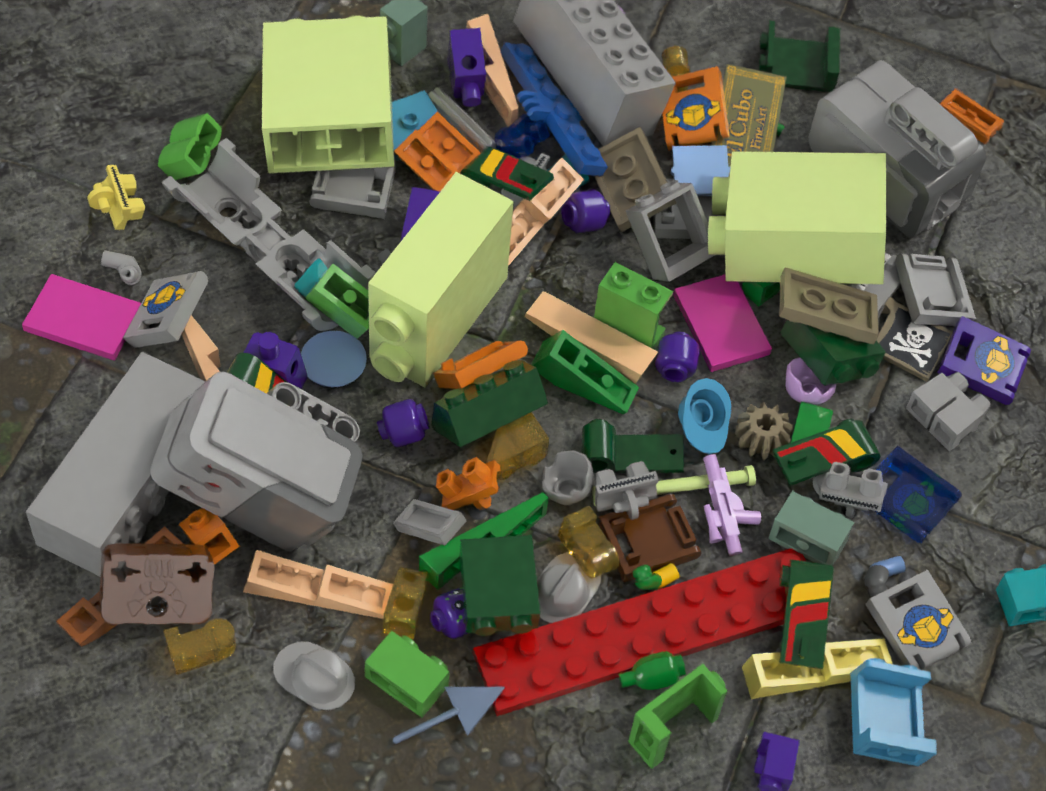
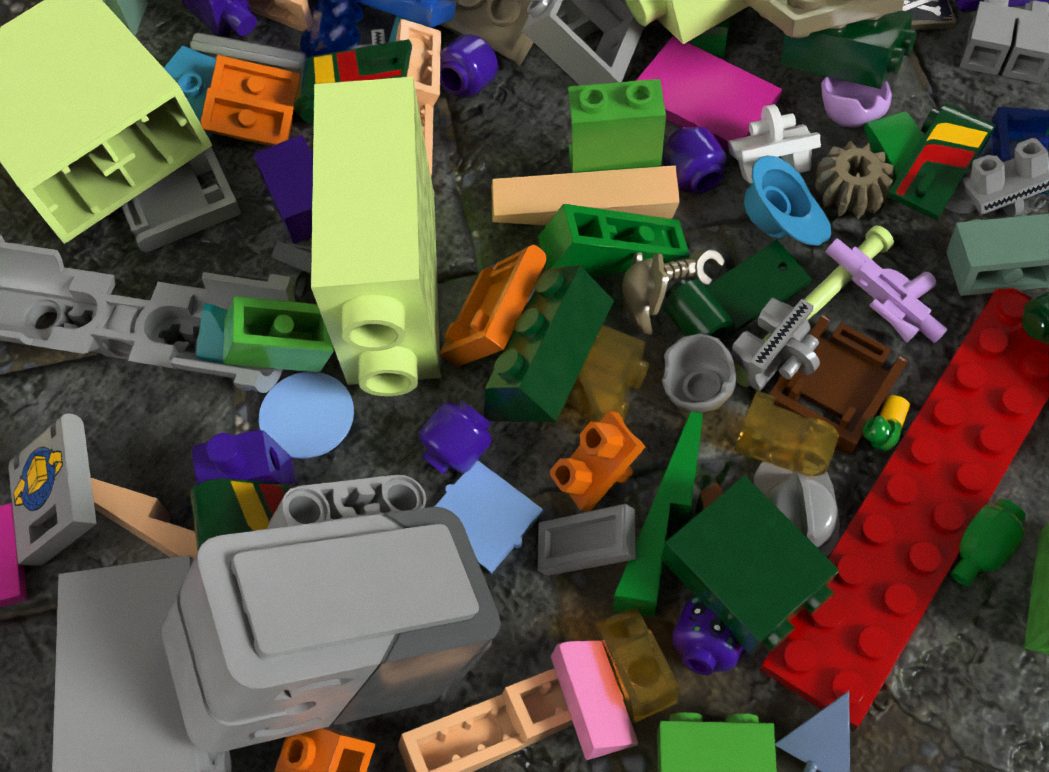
camera: 25 degrees left, 5 degrees up
(369, 600) = (593, 698): none -> bright pink slope
(389, 477) = (491, 513): none -> light blue piece
(582, 405) = (647, 282): none -> dark tan piece
(735, 375) = (775, 137): none -> white hips

